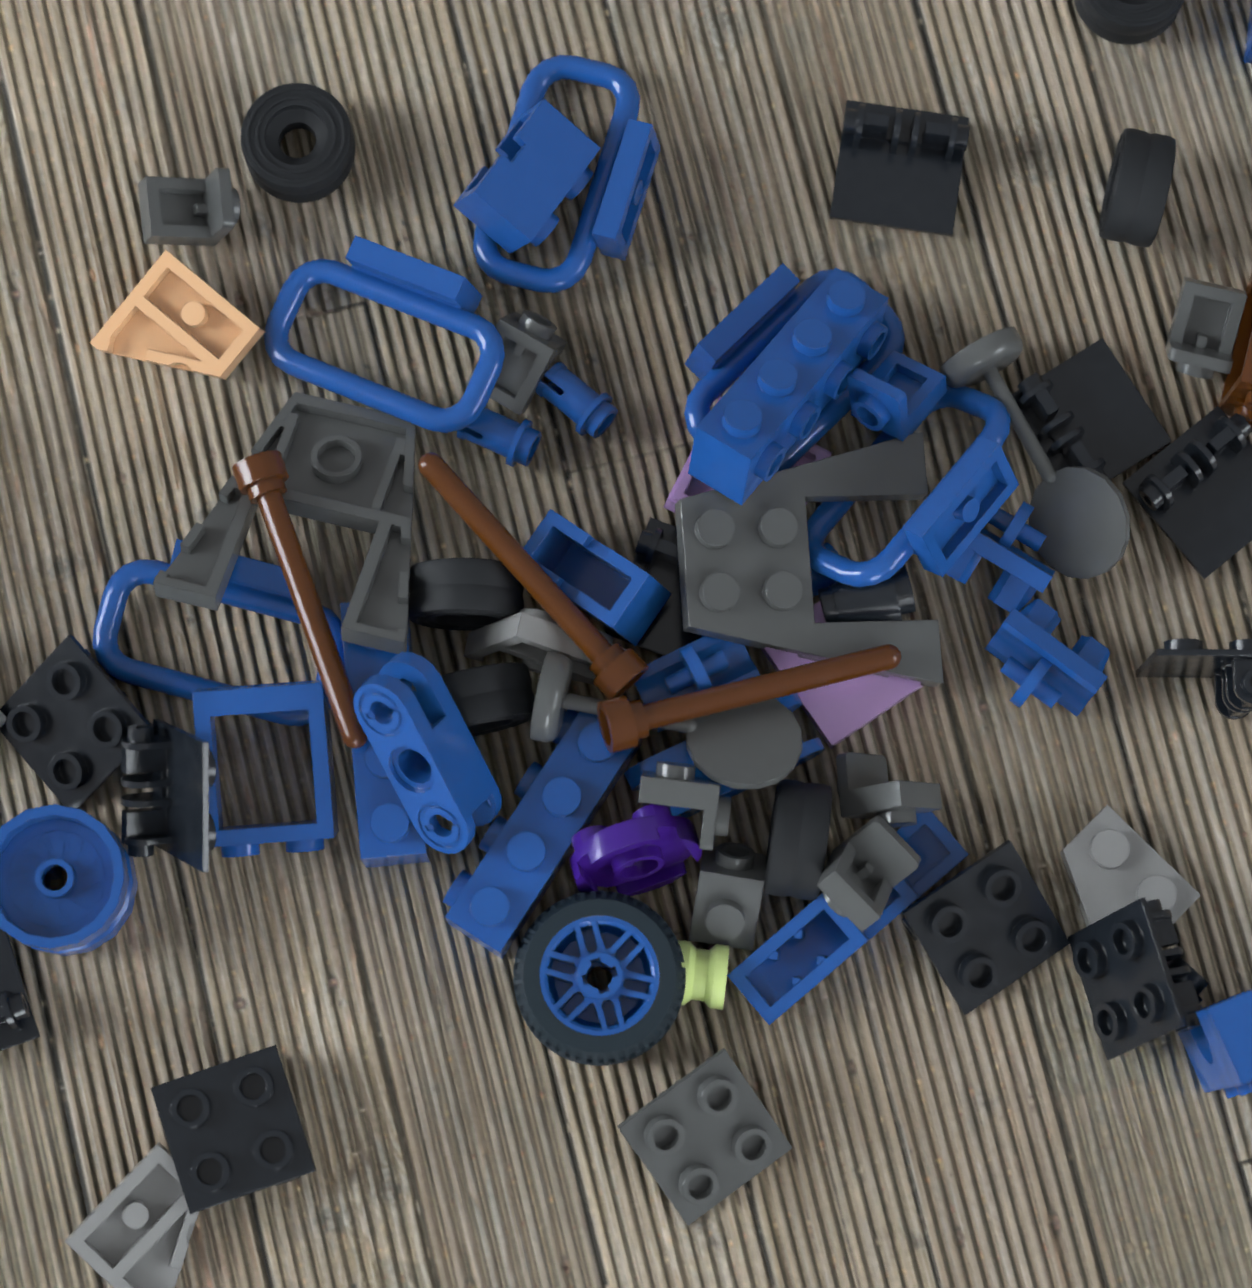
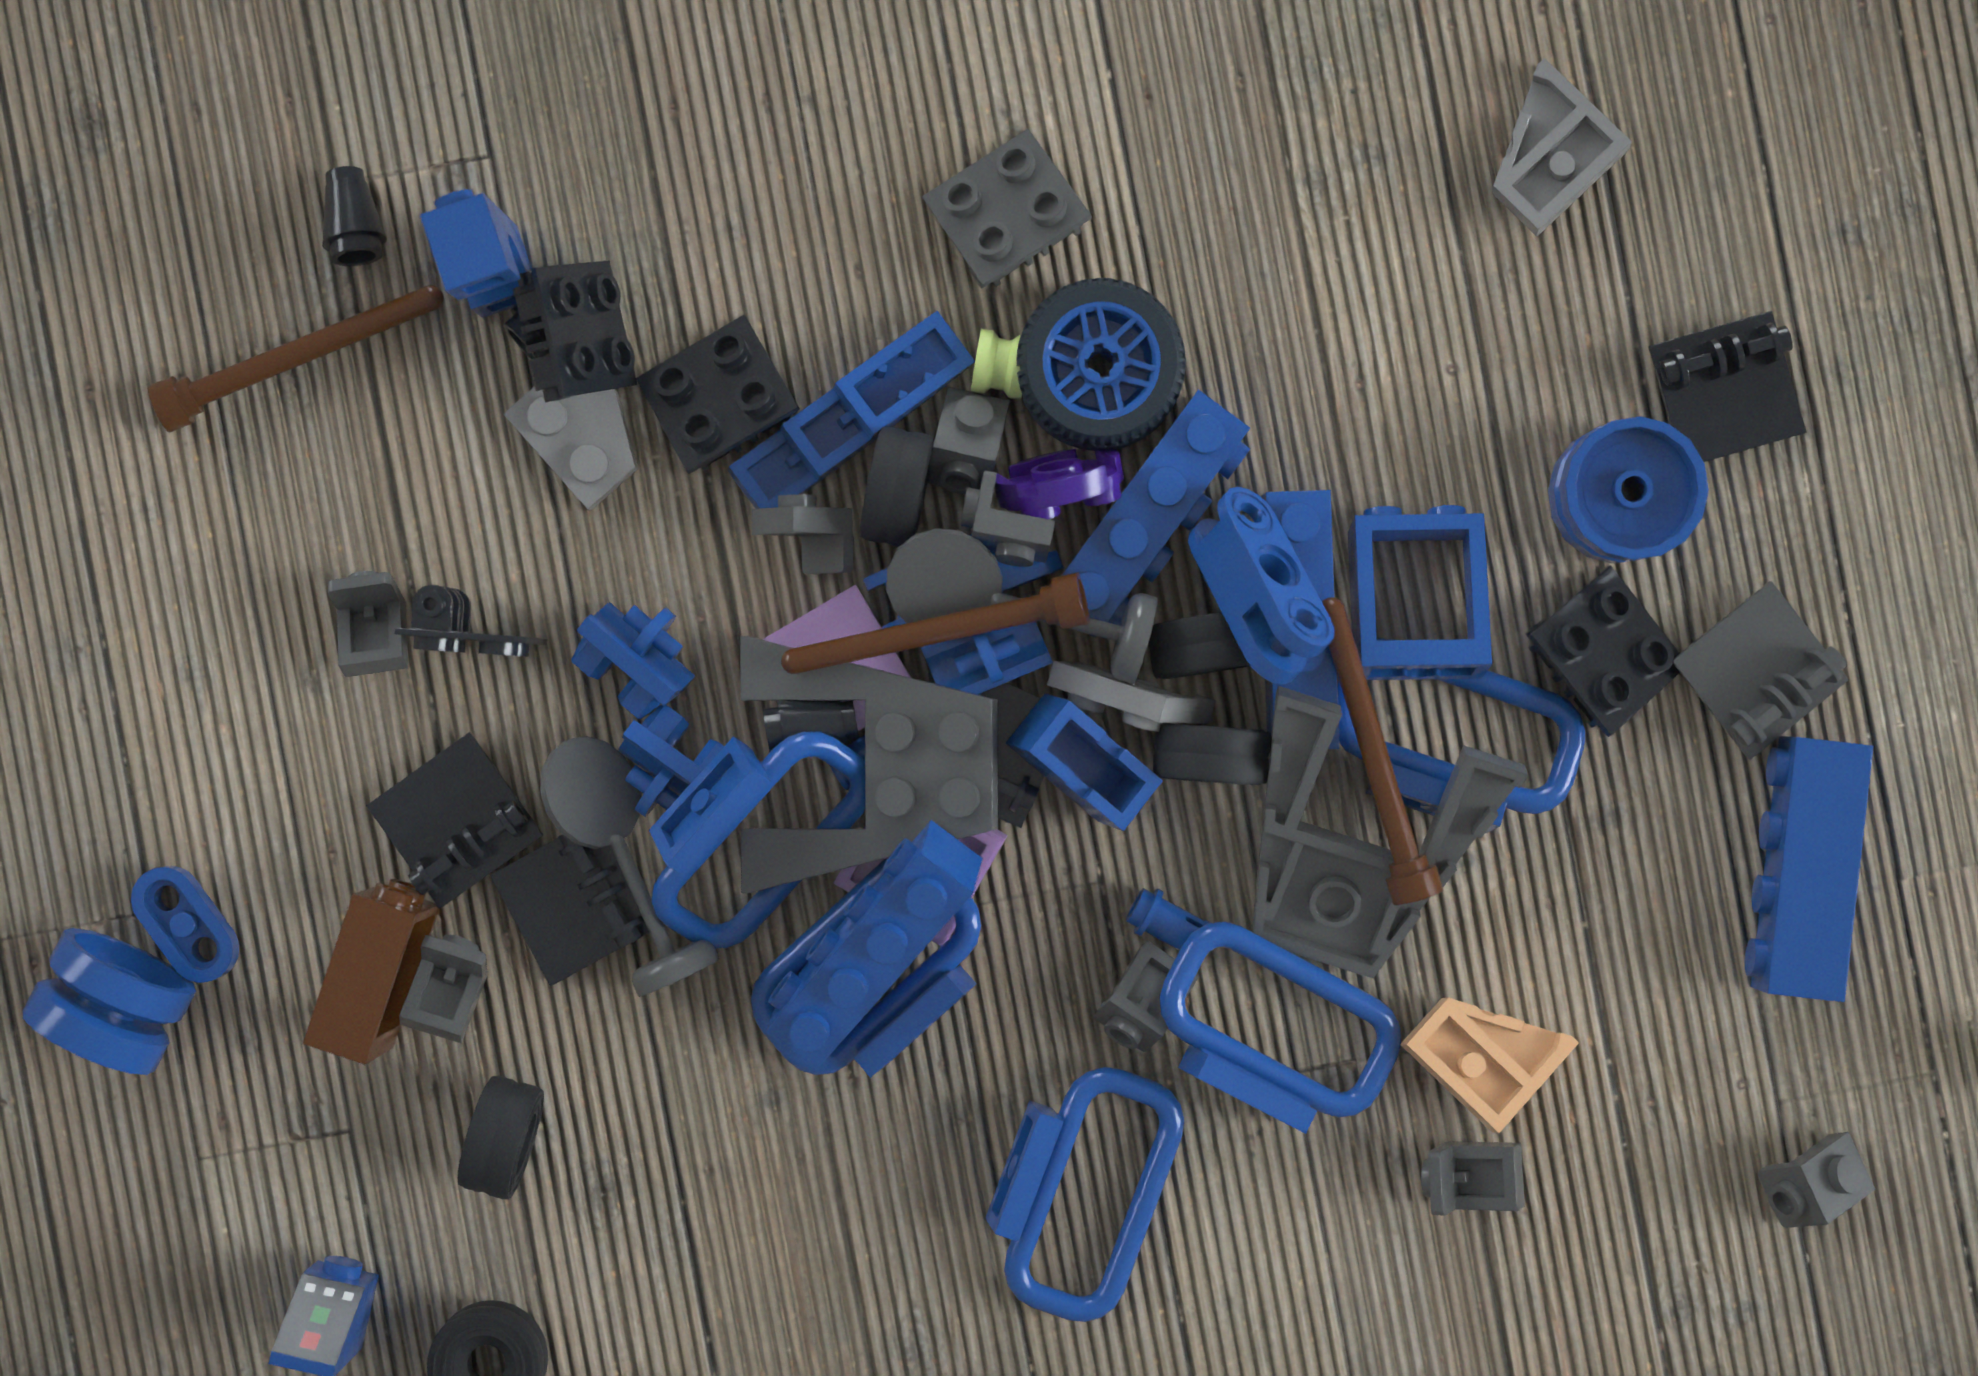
camera: 175 degrees left, 10 degrees up
(179, 803) = (1519, 568): black hinge -> none
(233, 1129) = (1465, 239): black hinge -> none
(292, 108) = (1365, 1278): black tyre -> none
(538, 167) = (1130, 1172): blue brick -> none
(578, 401) = (1087, 952): blue pin -> none
(611, 664) = (1071, 664): reddish brown piece -> none
(865, 871) = (835, 444): dark grey bracket -> none
(895, 395) = (765, 933): blue bracket -> none
(899, 168) = (742, 1179): black hinge -> none

